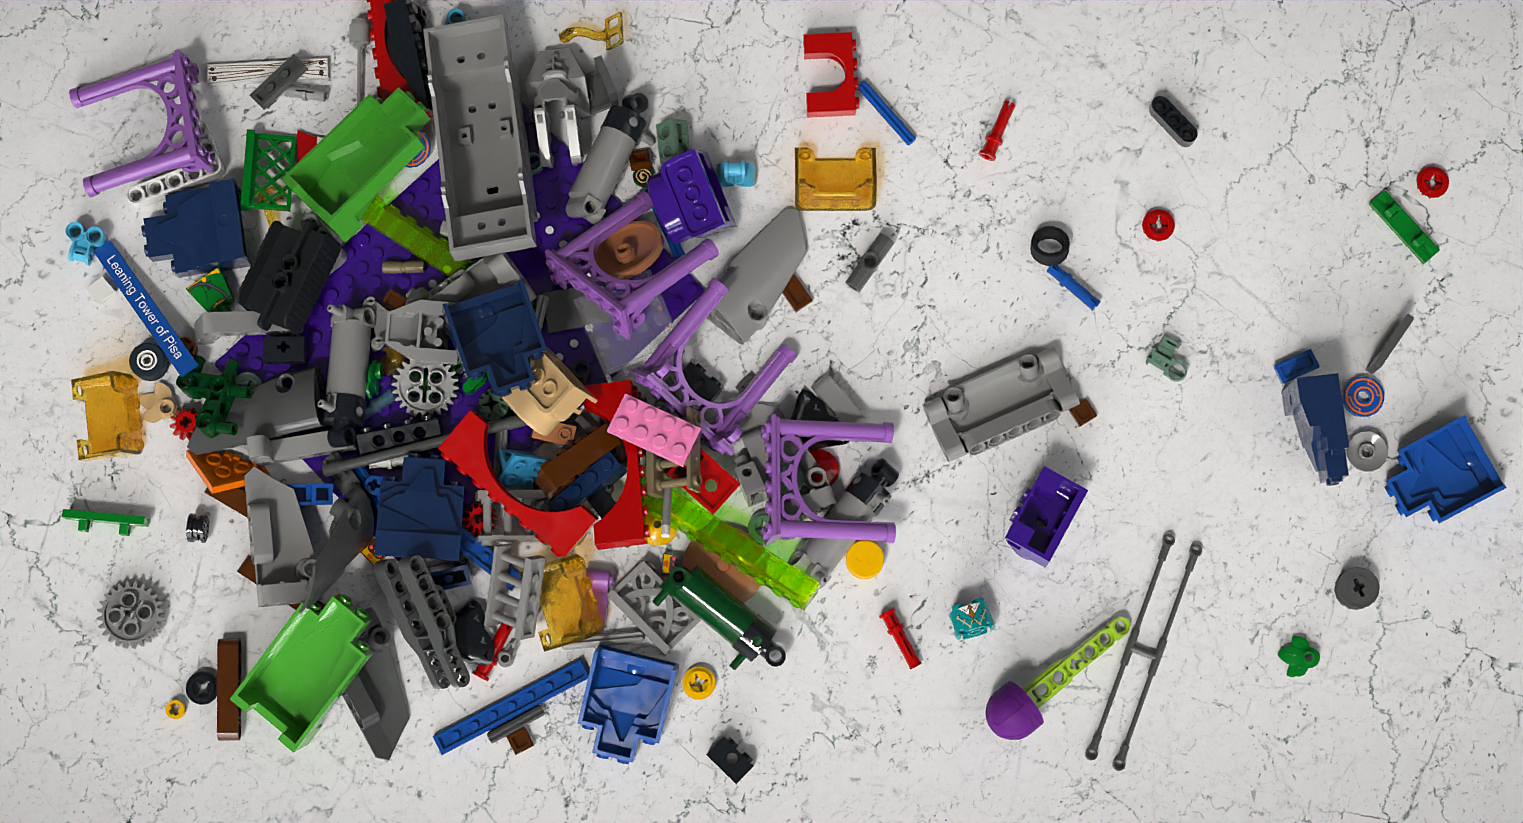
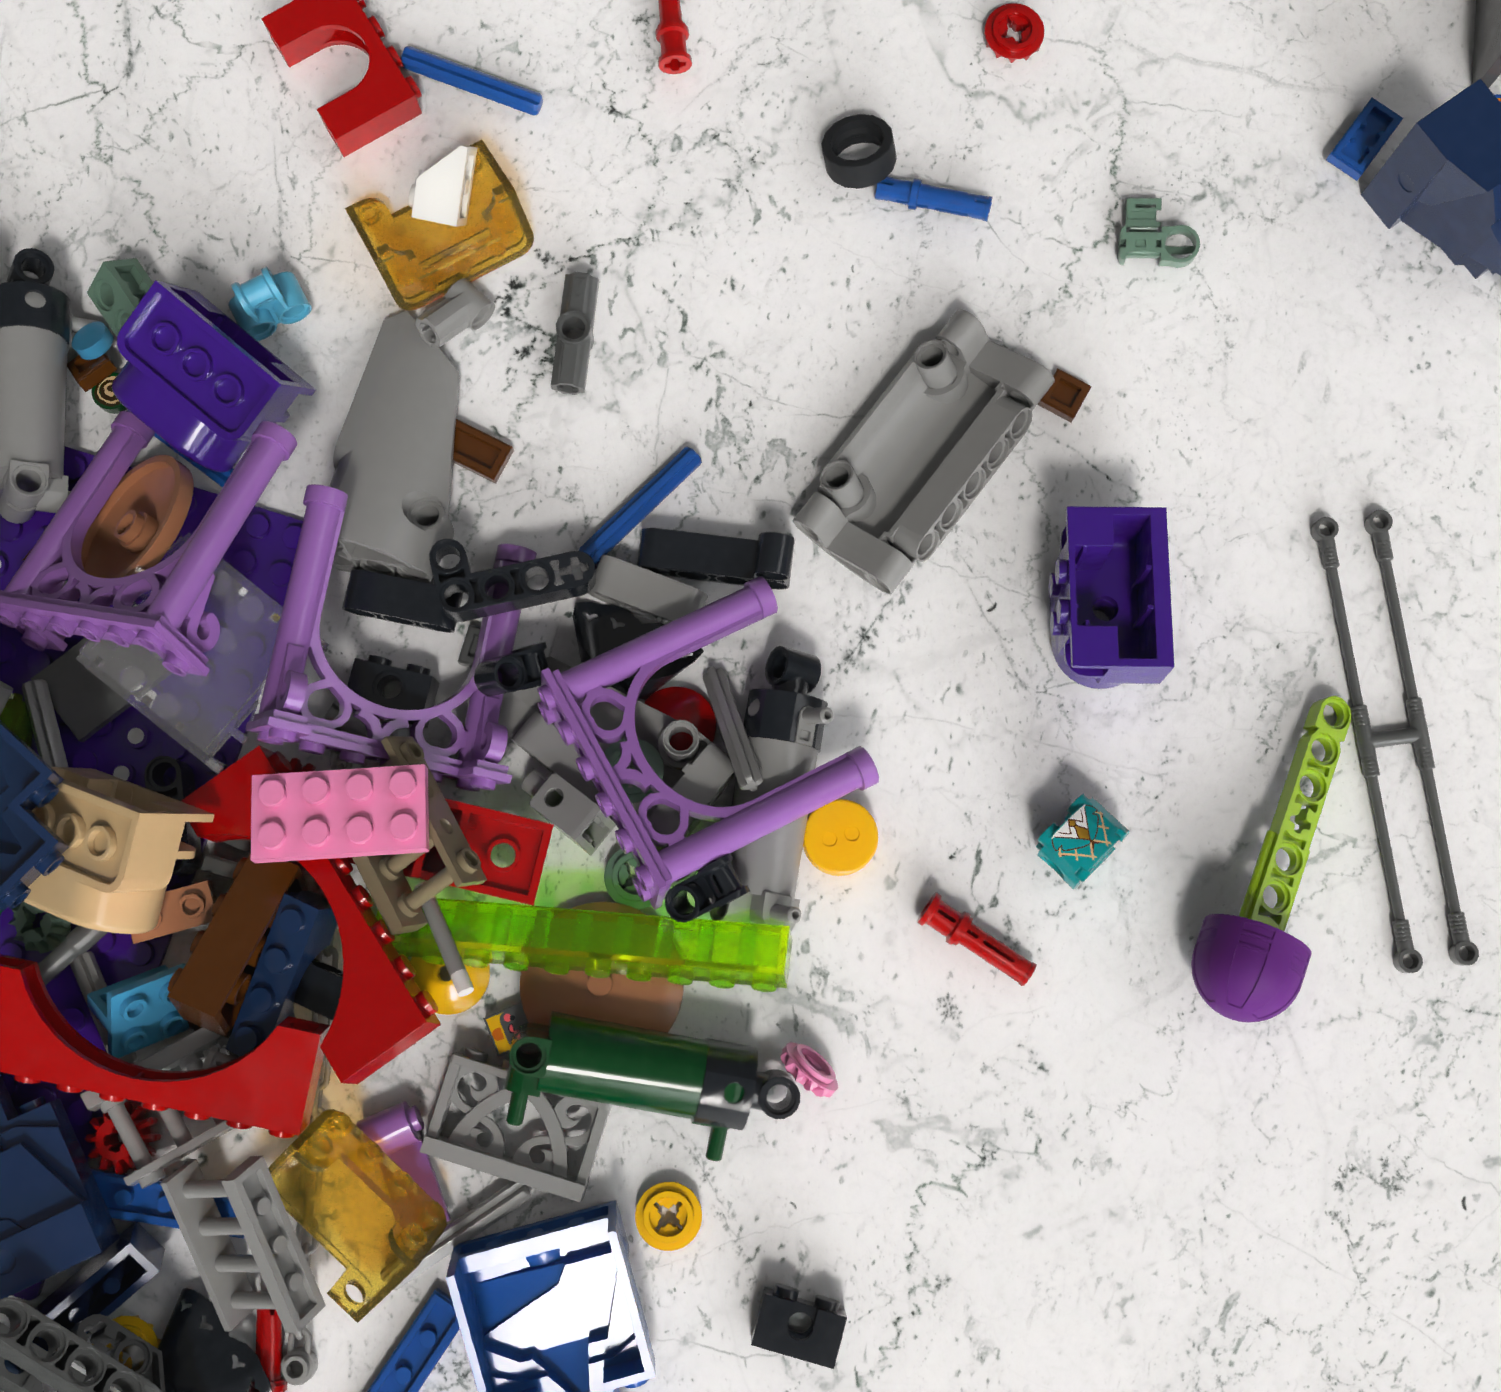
camera: 30 degrees left, 0 degrees up
(647, 148) = (92, 340): none -> dark azure tile
(725, 346) = (398, 600): none -> black beam
(761, 407) = (519, 670): none -> black piece
(781, 363) = (514, 576): none -> black beam
(795, 548) = (710, 887): none -> black piece
(795, 652) = (809, 1069): none -> bright pink gear
(822, 223) = (461, 308): none -> light grey piece
(842, 484) = (732, 729): none -> light grey axle
(845, 164) = (445, 189): none -> white slope
(856, 359) = (641, 504): none -> blue axle
(878, 402) = (717, 557): none -> black beam

